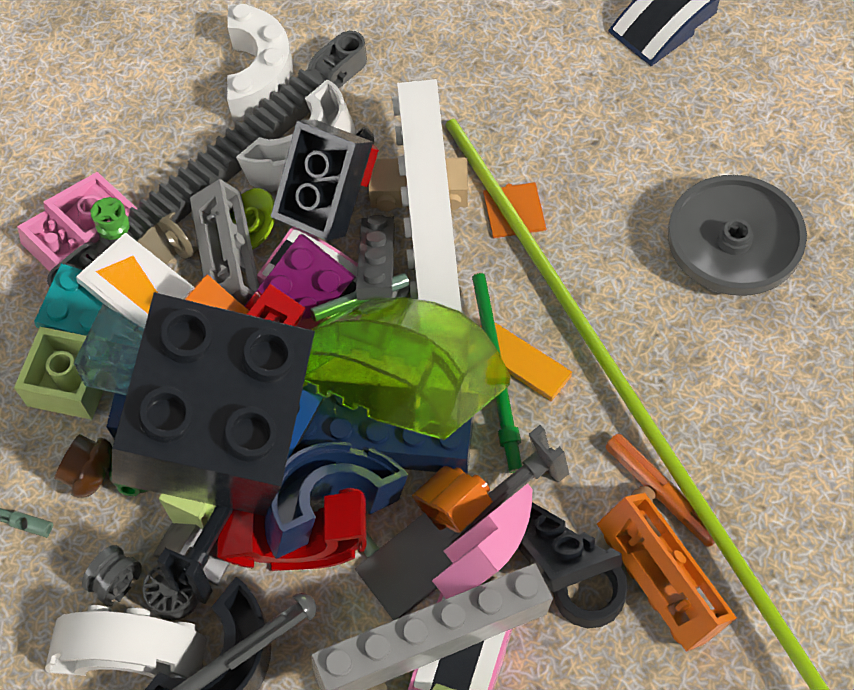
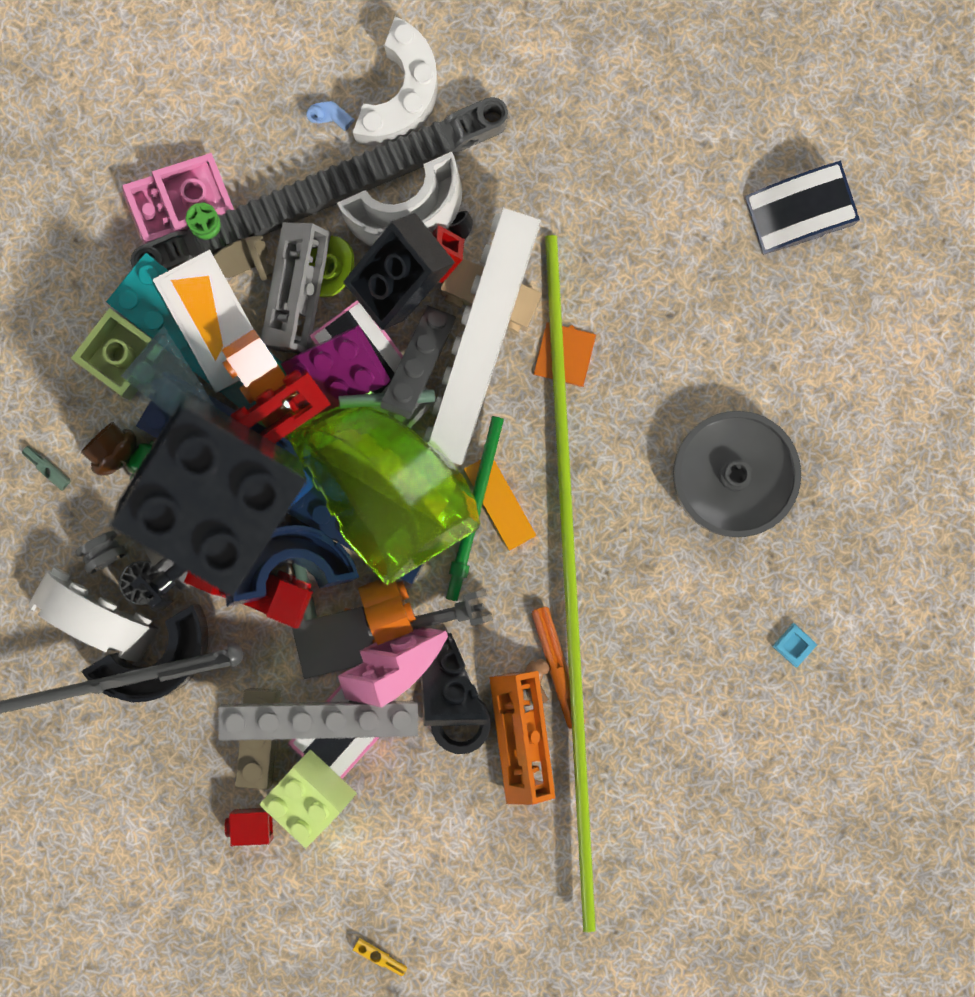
camera: 20 degrees right, 25 degrees up
(198, 105) = (329, 112): none -> light blue arm

